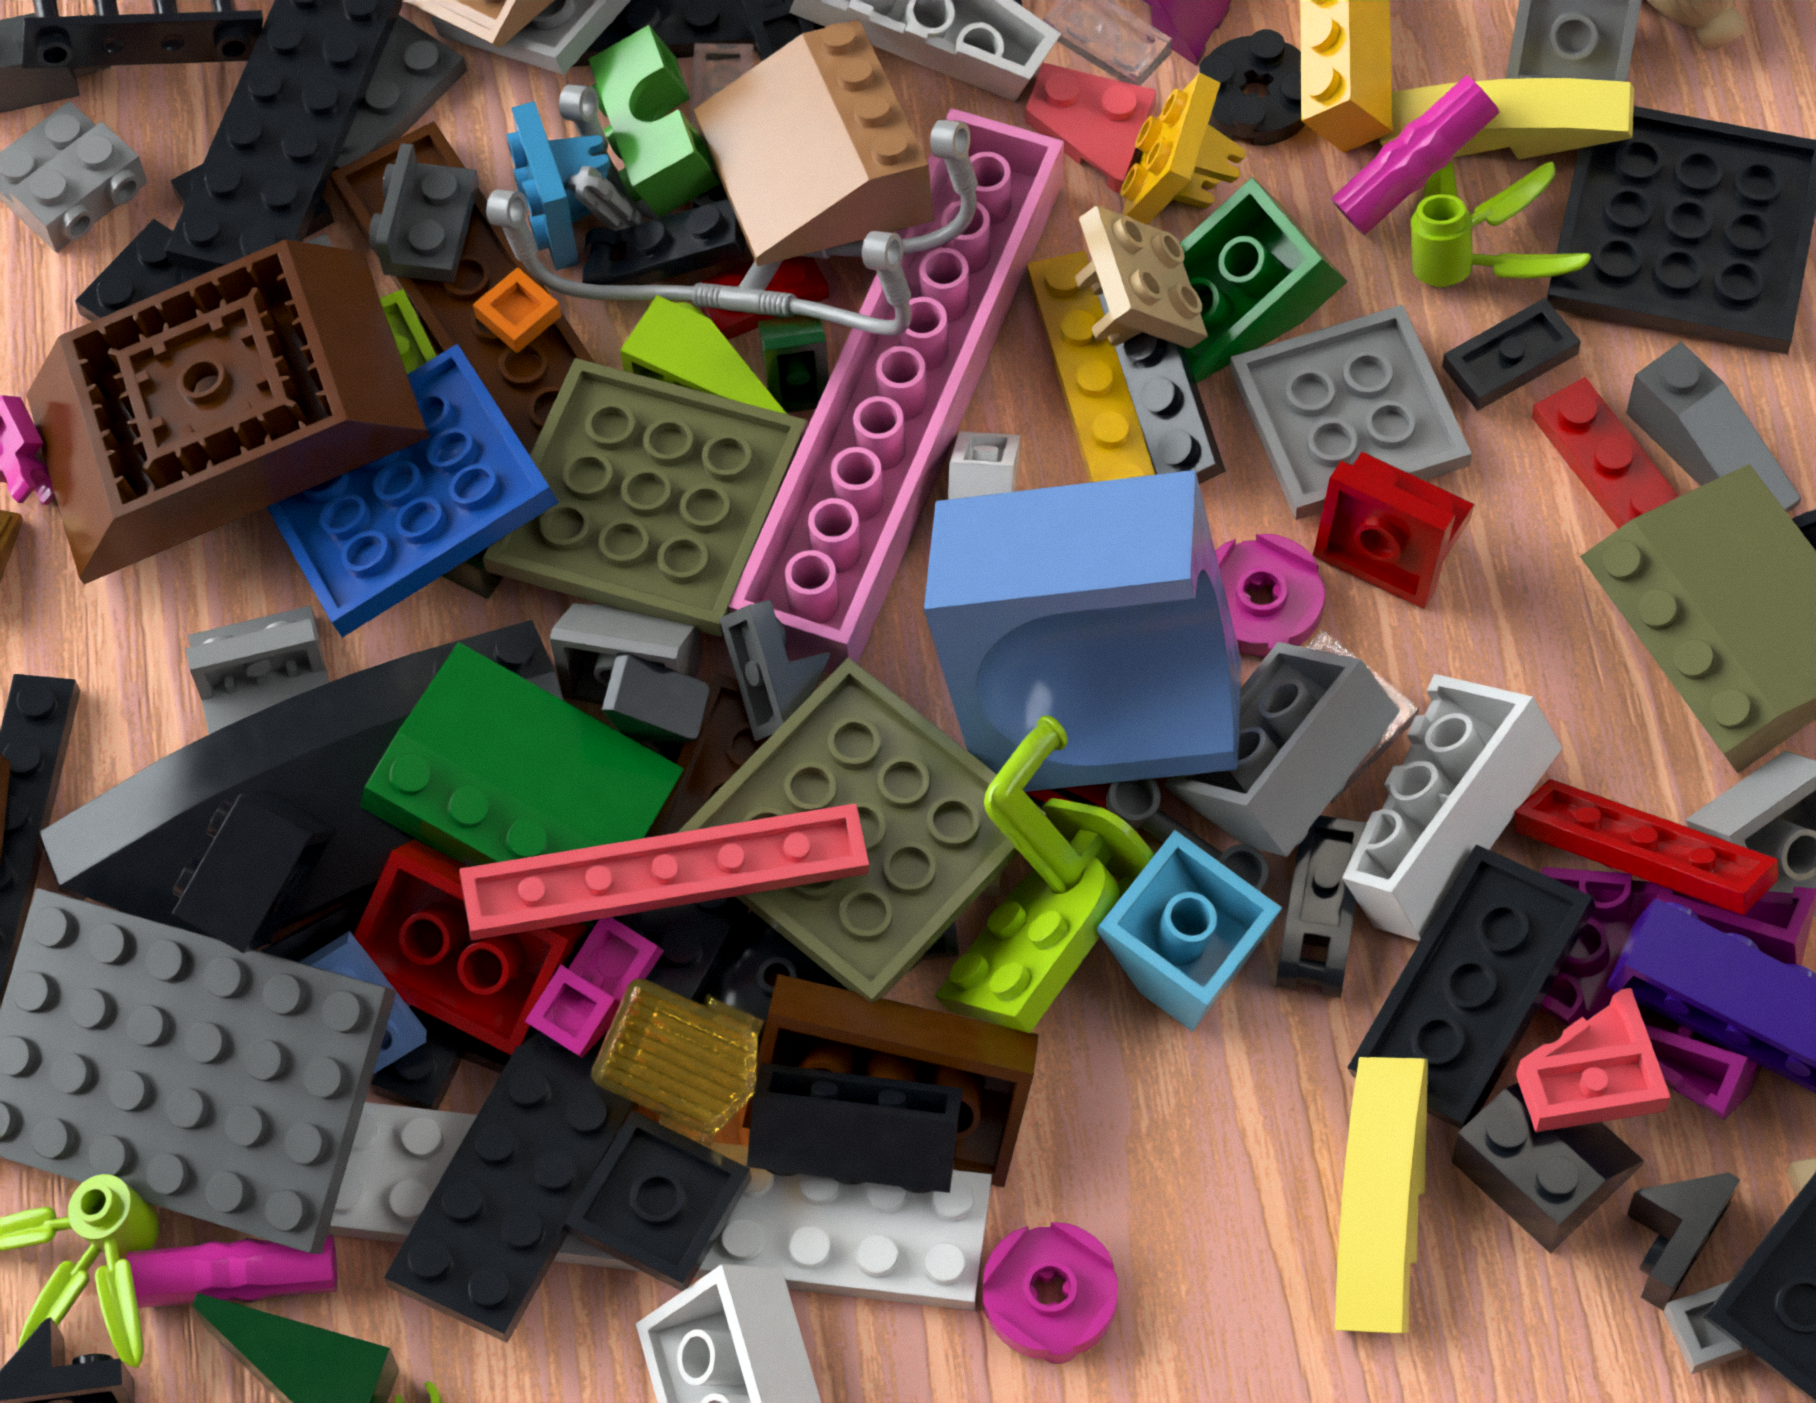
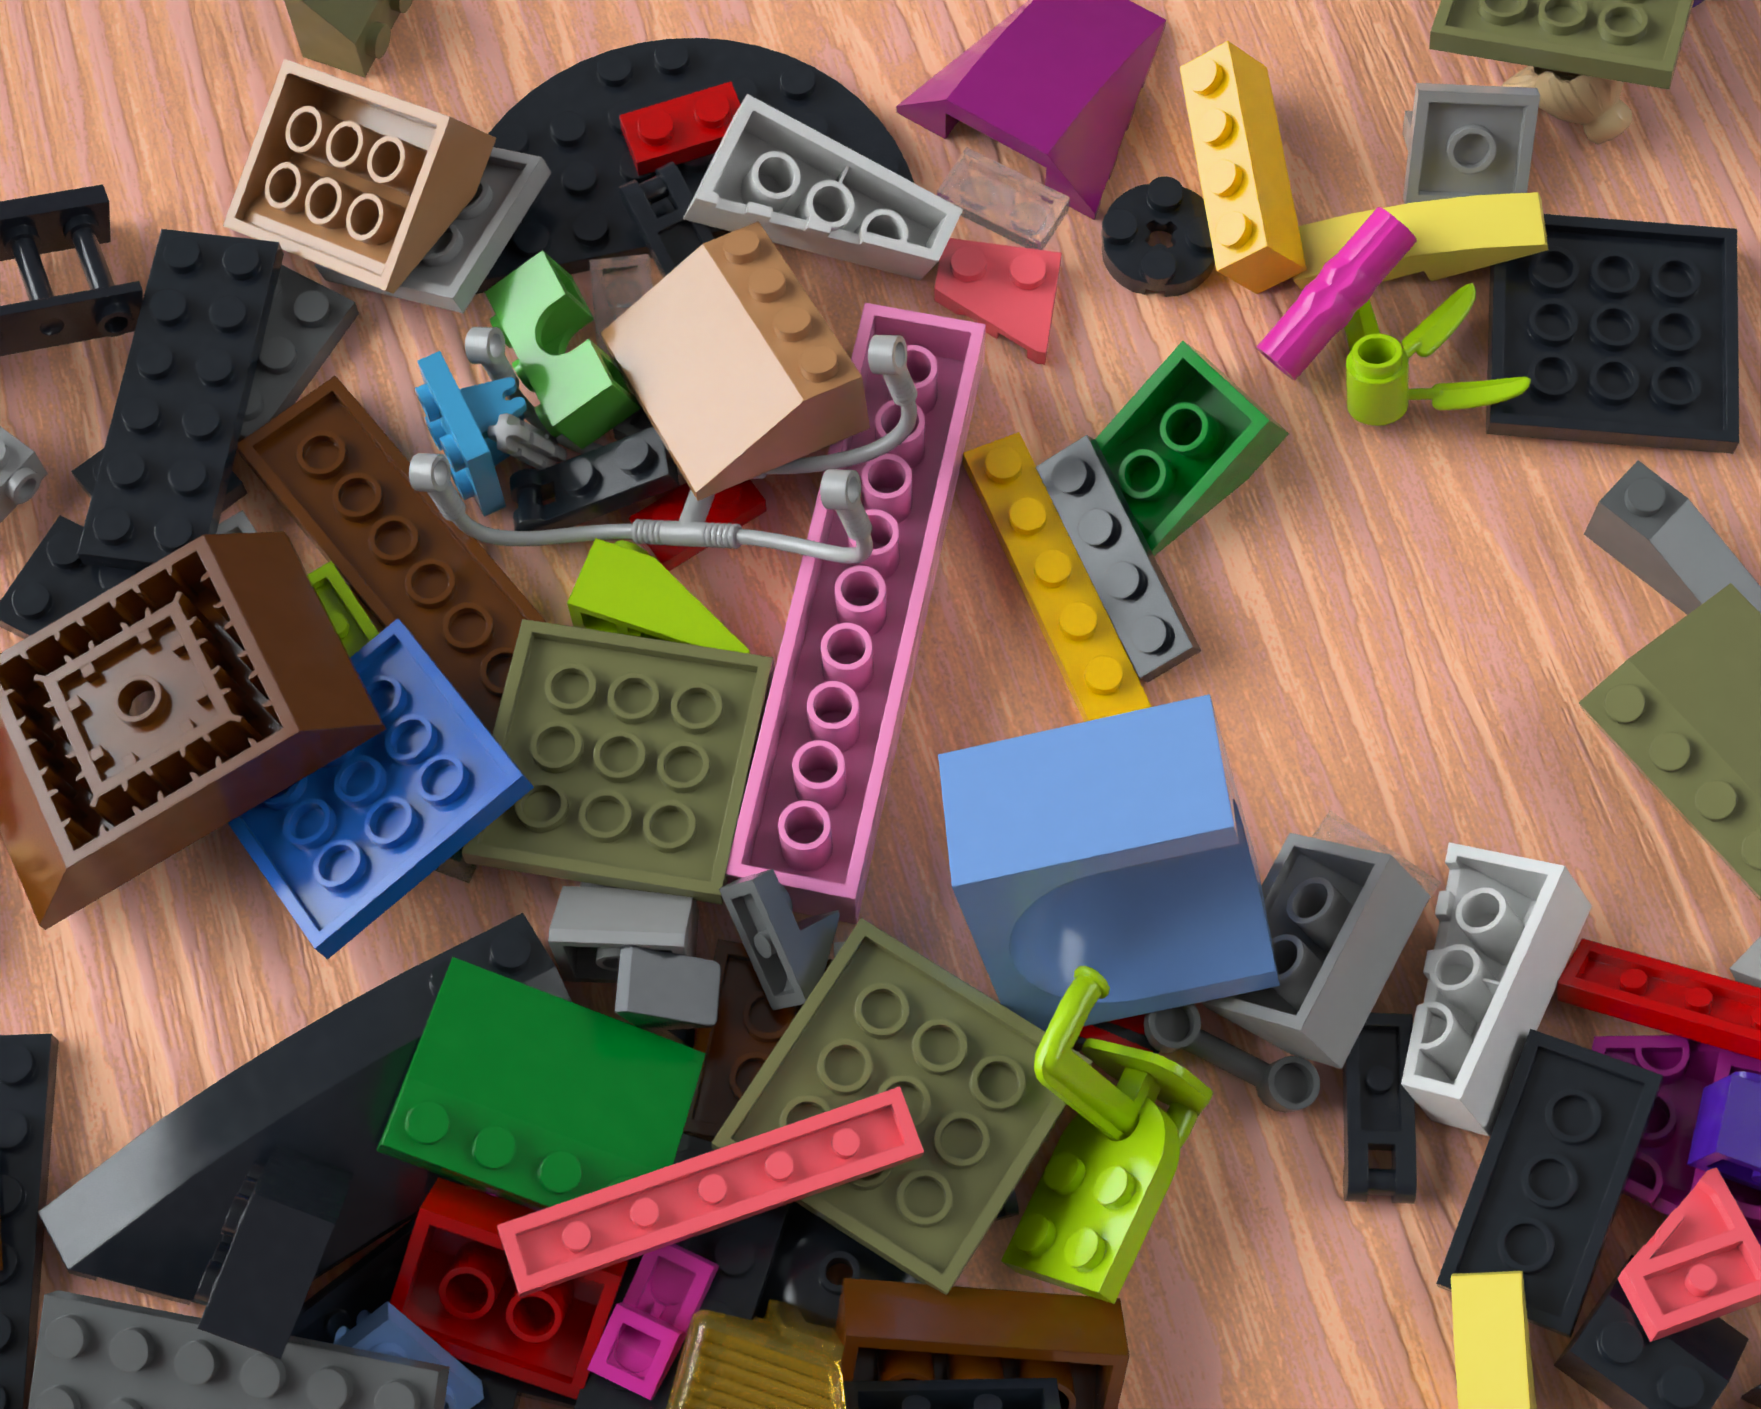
camera: 10 degrees left, 5 degrees up
(255, 664) = (242, 998): light grey bracket -> none
(423, 218) = (341, 484): dark grey bracket -> none
(517, 310) = (454, 572): orange plate -> none
(794, 360) = (747, 590): dark green slope -> none
(983, 464) = (959, 693): white slope -> none
(1141, 281) = (1090, 464): tan plate -> none
(1180, 154) = (1098, 320): yellow plate -> none
(1186, 929) = (1255, 1162): medium azure slope -> none
(1295, 586) = (1292, 765): dark pink plate -> none
(1345, 395) = (1313, 571): light grey plate -> none
(1389, 527) = (1381, 692): red bracket -> none
(1511, 354) = (1463, 488): black plate -> none
(1602, 452) = (1577, 588): red plate -> none

